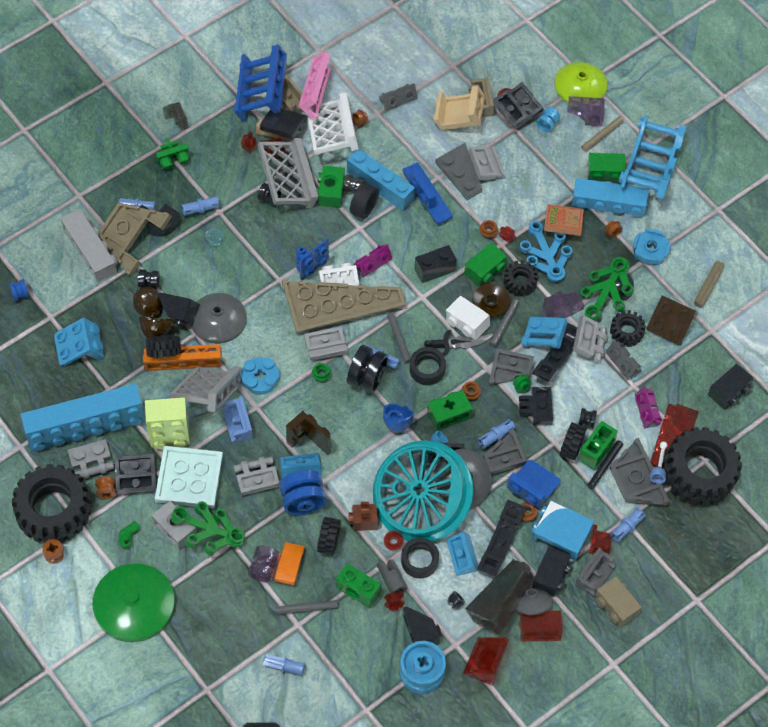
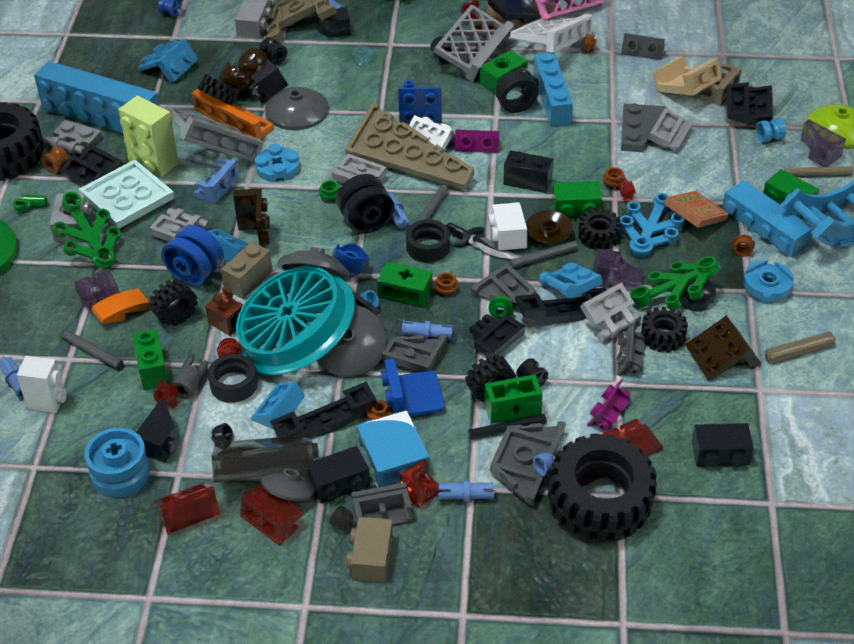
camera: 45 degrees right, 15 degrees down
(200, 205) = (377, 29): medium blue pin -> none
(319, 656) = (41, 384): none -> white brick
(342, 475) = (247, 269): none -> dark tan brick
(393, 442) = (314, 257): none -> dark grey dish
(427, 193) = (585, 121): blue bracket -> none
(580, 600) = (342, 518): none -> clear smoke hinge

